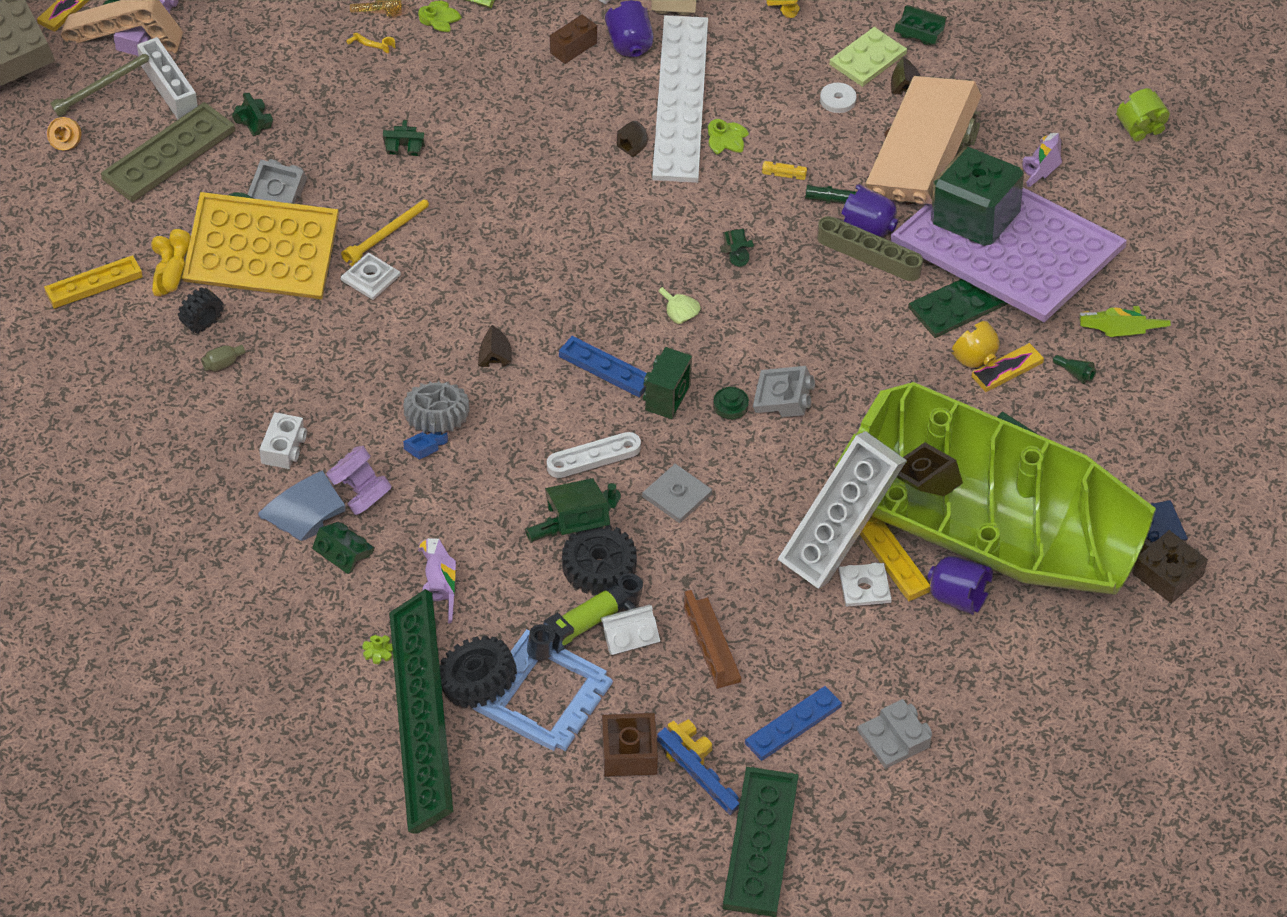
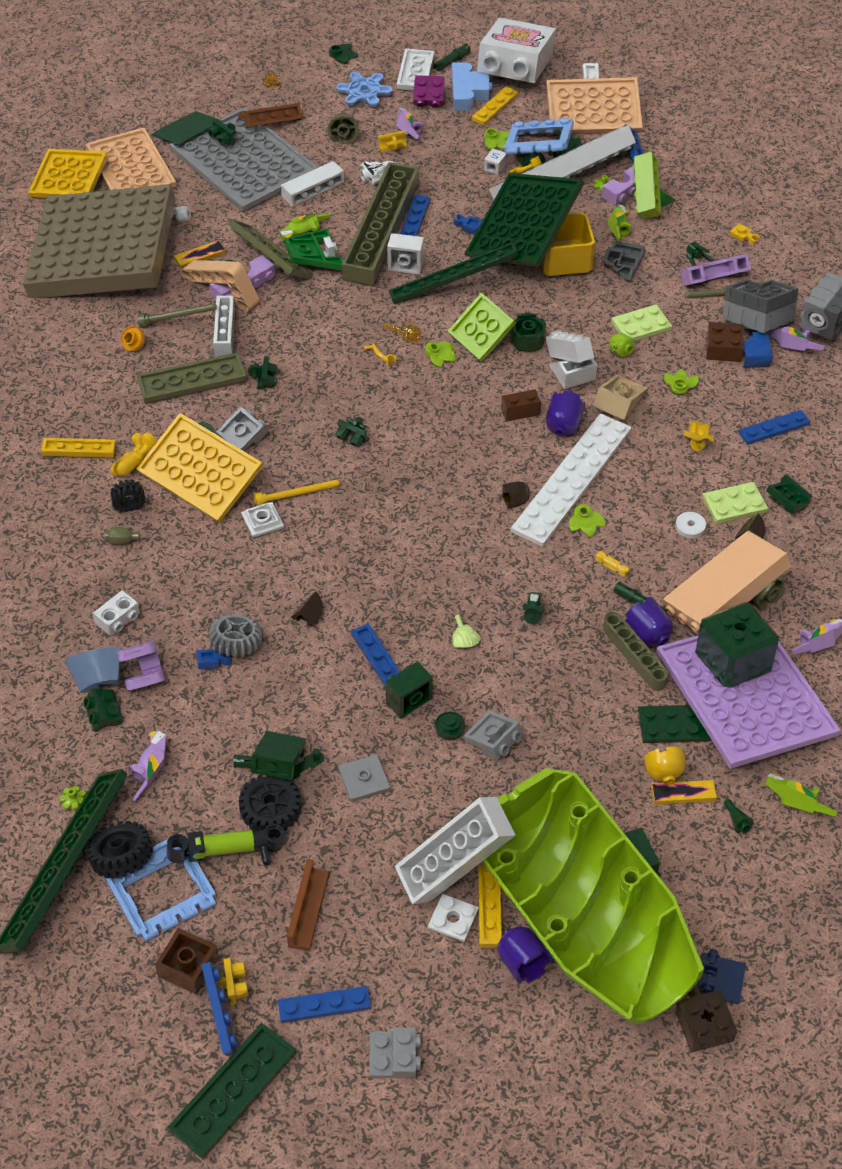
camera: 30 degrees right, 0 degrees up
(593, 454) = (323, 720): white plate -> none
(630, 629) = (252, 869): white plate -> none
(930, 471) = (541, 850): dark brown slope -> none

